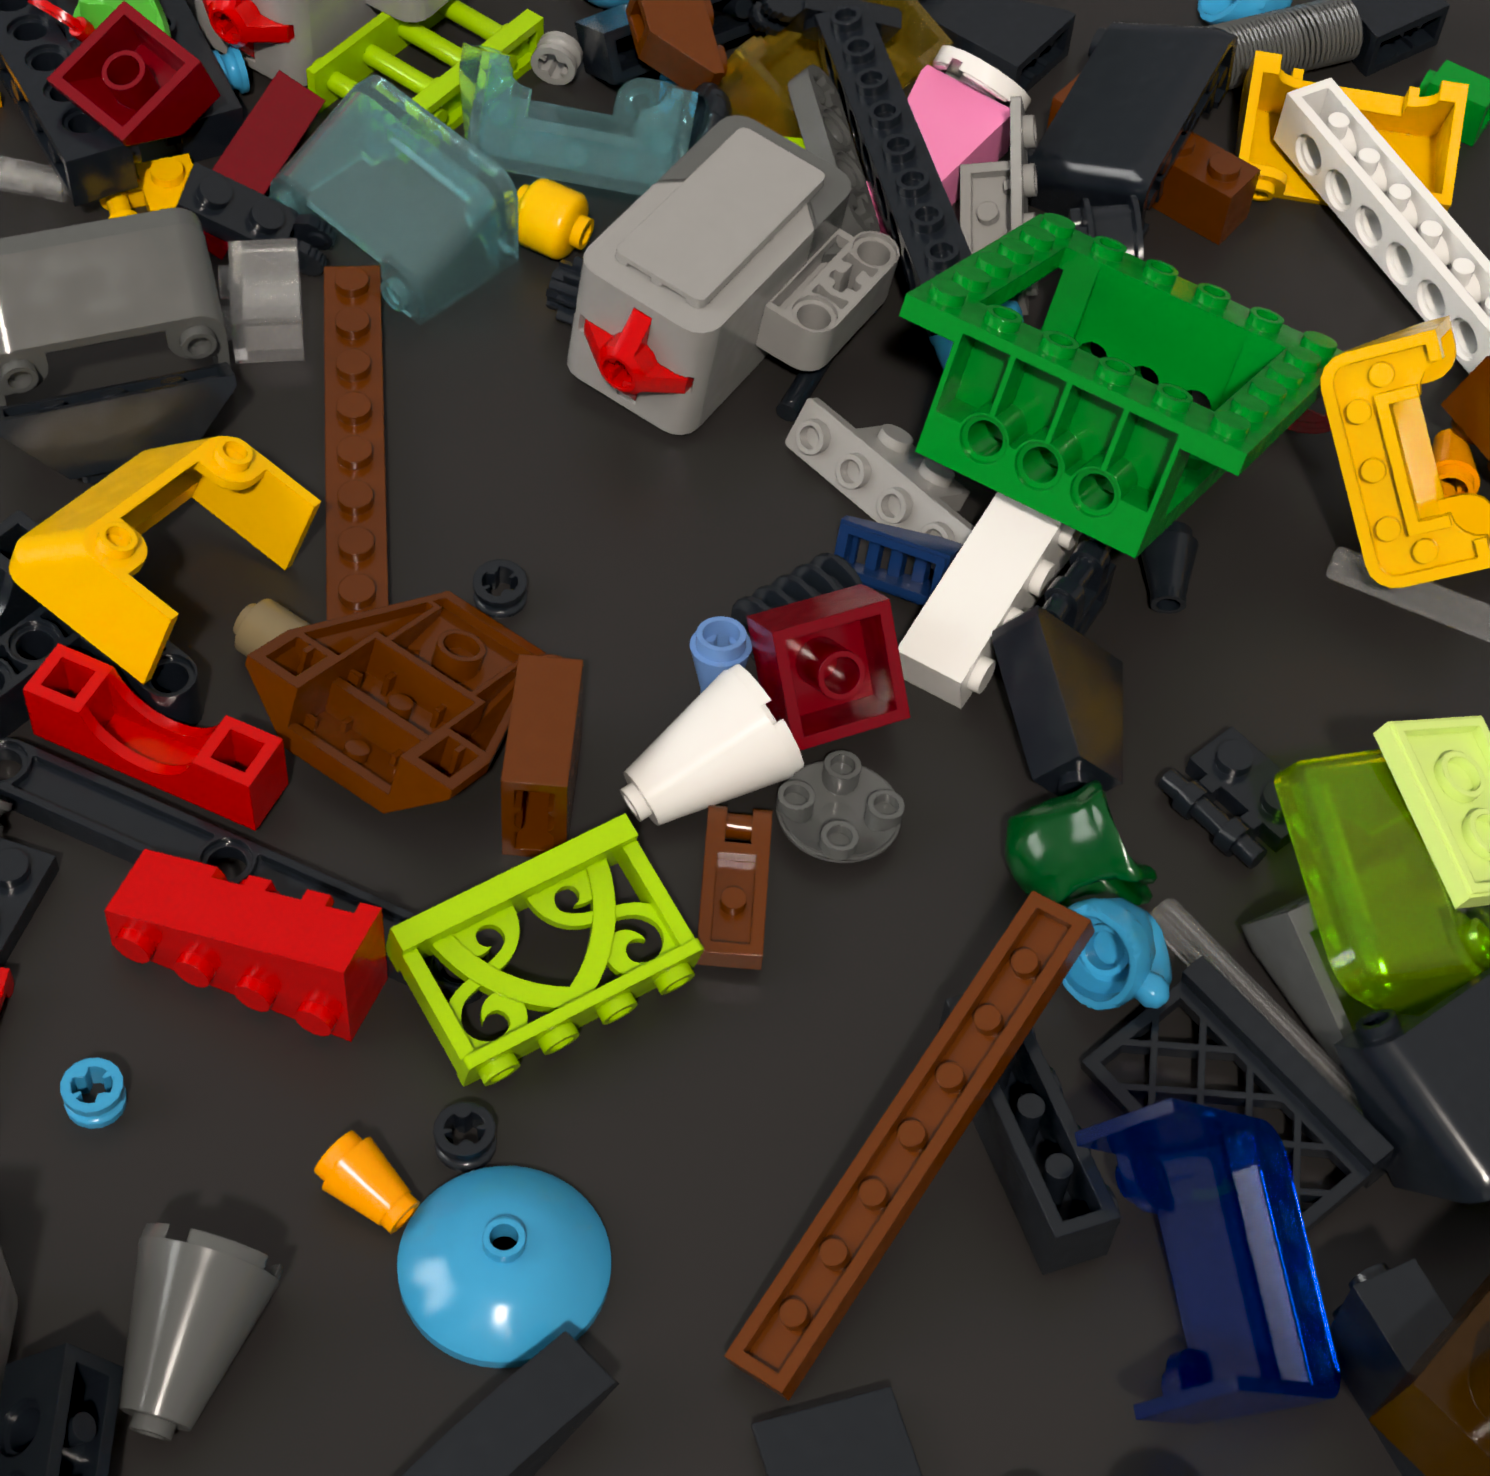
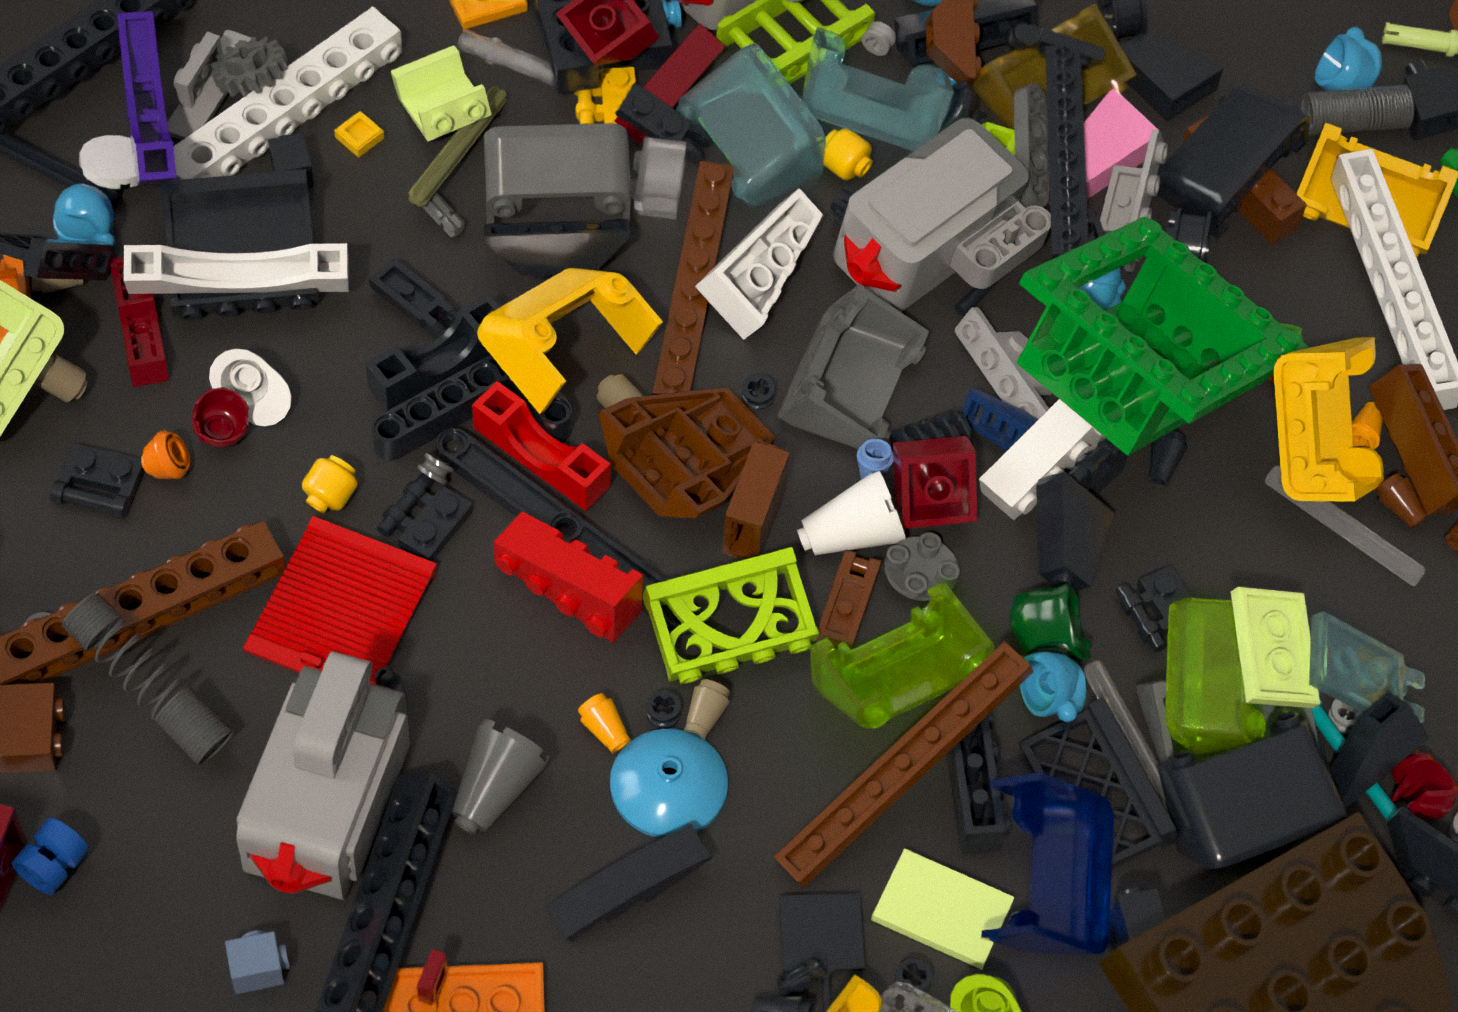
camera: 15 degrees right, 5 degrees up
(79, 1081) = (475, 650): dark azure bush -> none
(453, 404) = (755, 270): none -> white wedge
(540, 1116) = (706, 707): none -> dark tan cone
(643, 524) = (852, 369): none -> dark grey windscreen
(864, 971) = (904, 664): none -> clear neon green windscreen
(979, 75) = (1146, 107): white tile -> none
(1040, 1380) = (942, 908): none -> yellowish green tile

